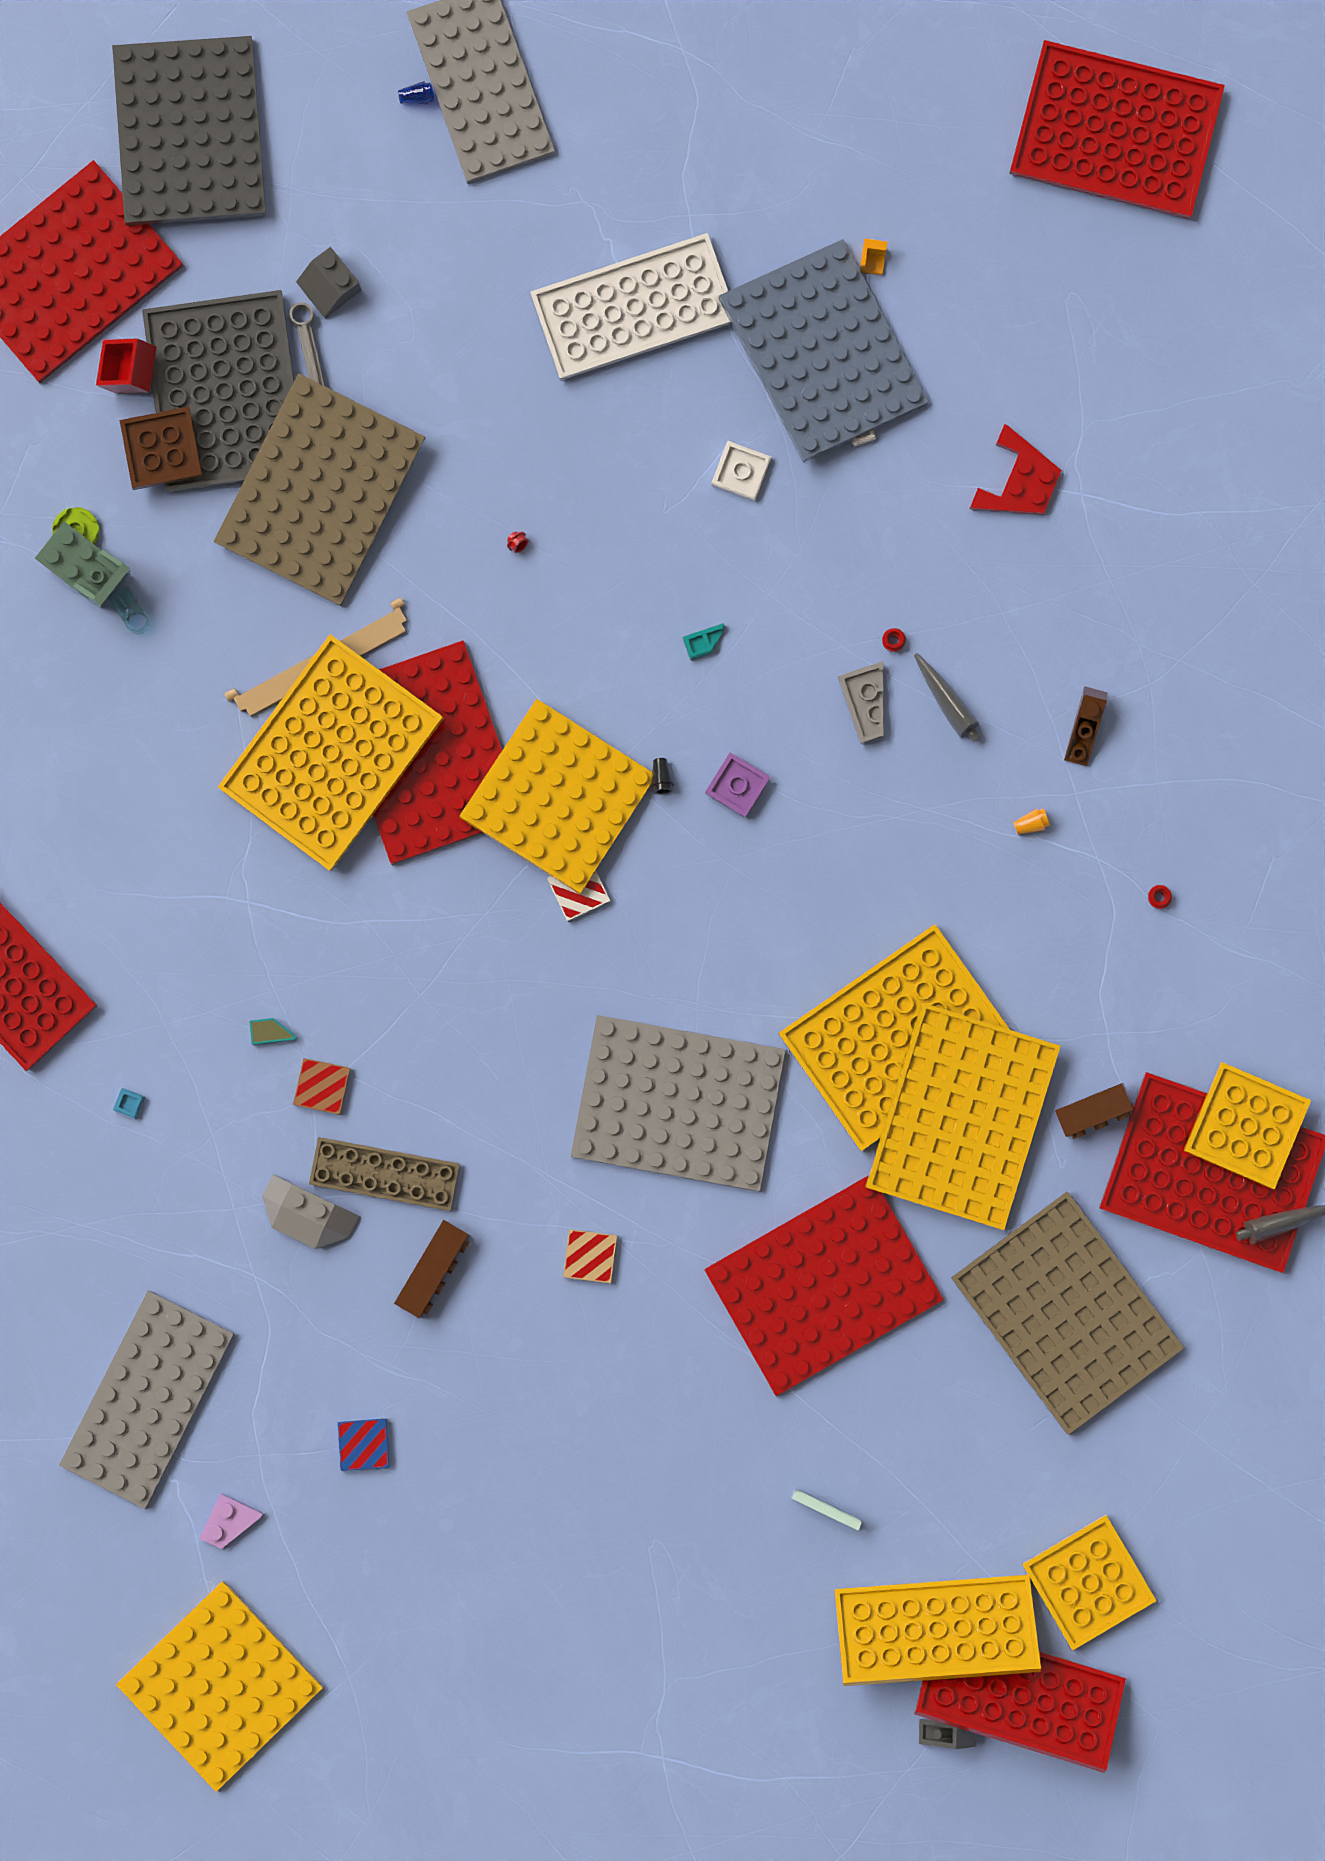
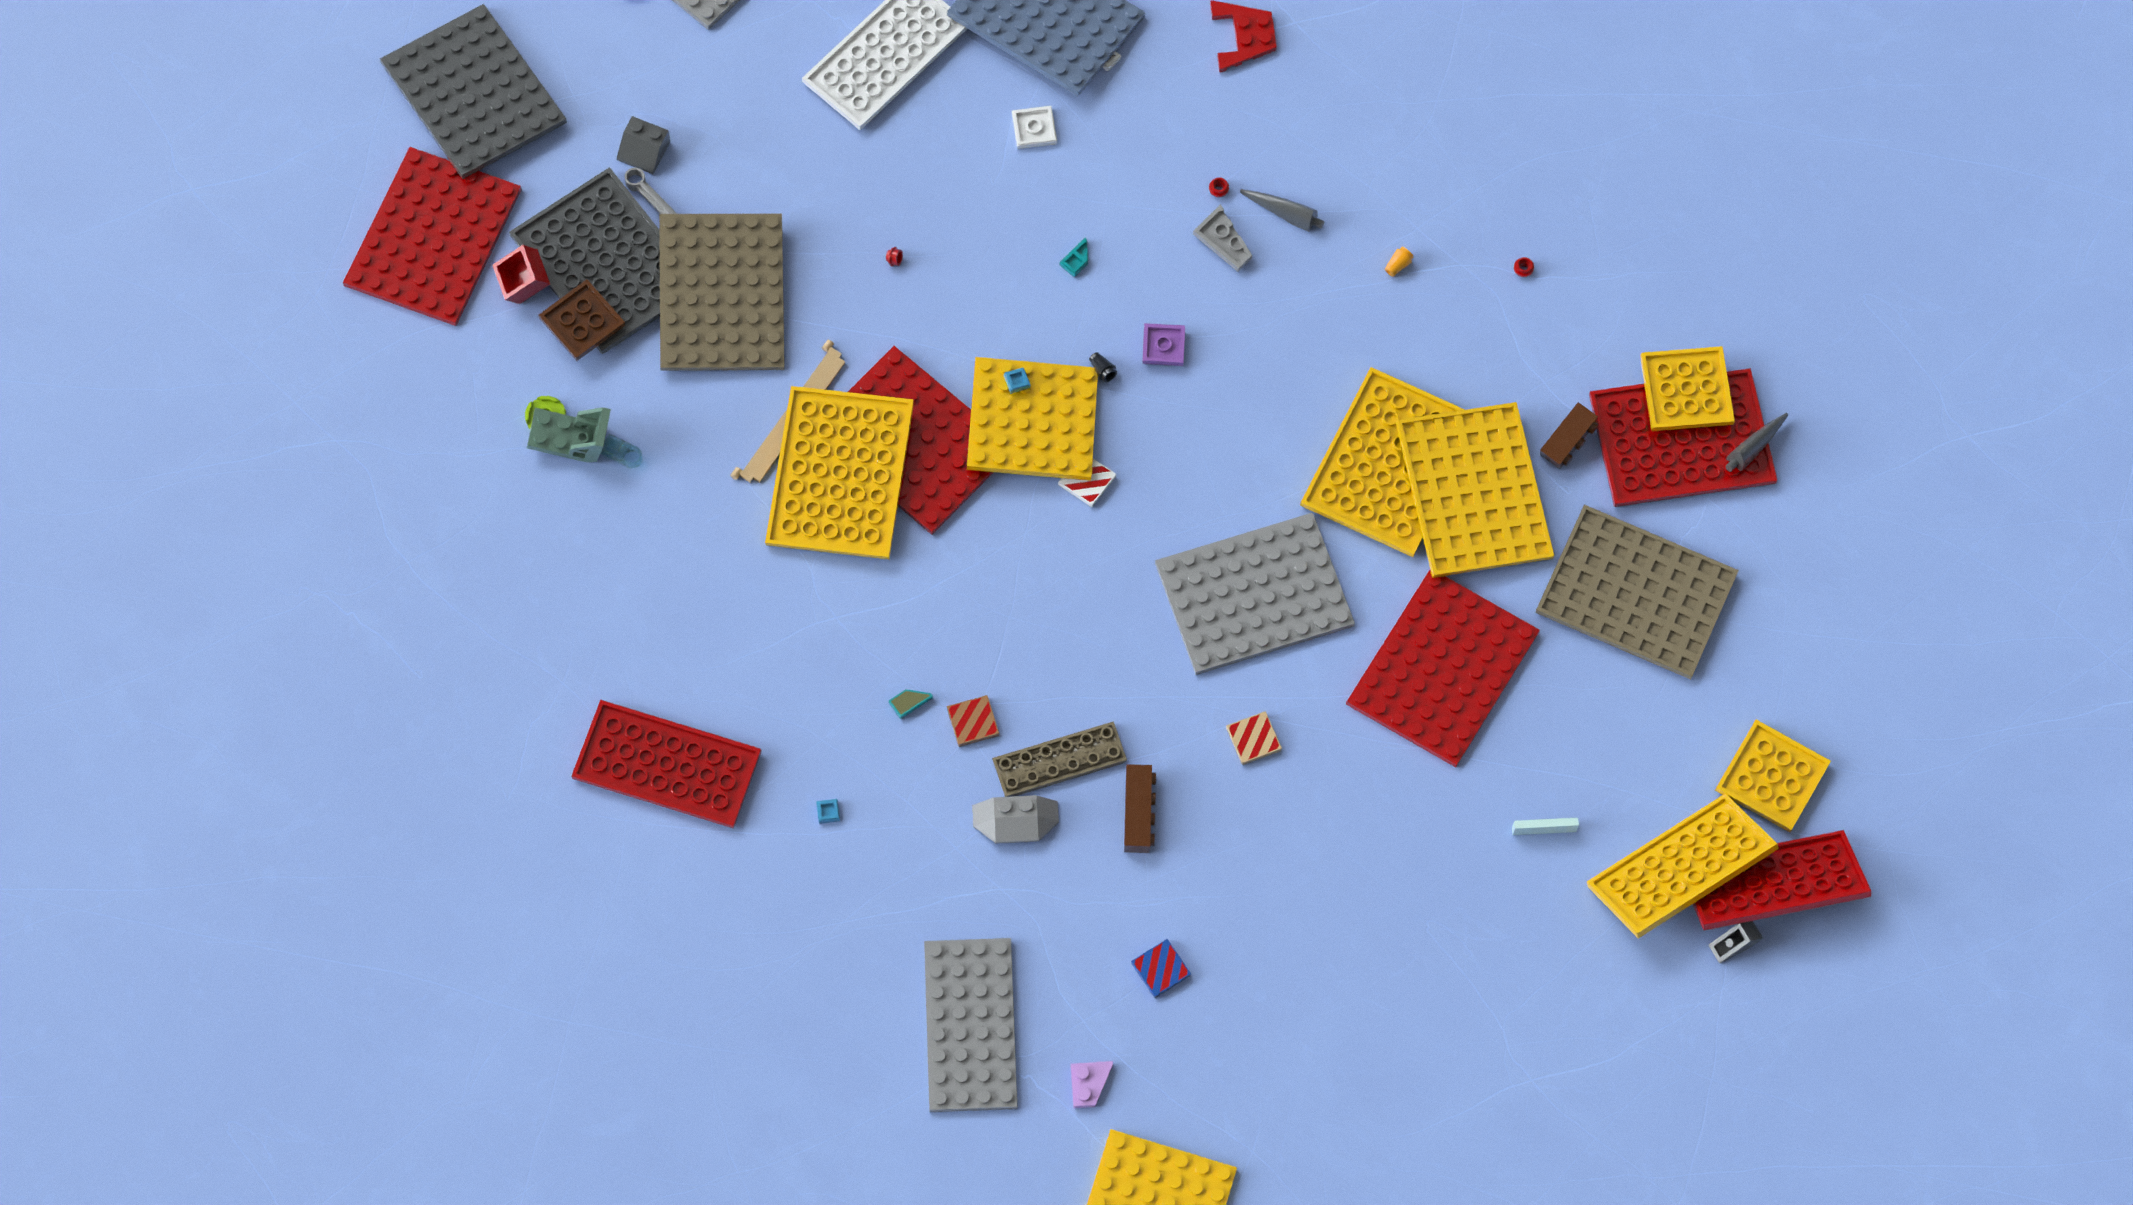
camera: 35 degrees left, 15 degrees down
(562, 748) = (1017, 380): none -> dark azure tile
(1086, 725) = (1397, 176): reddish brown slope -> none

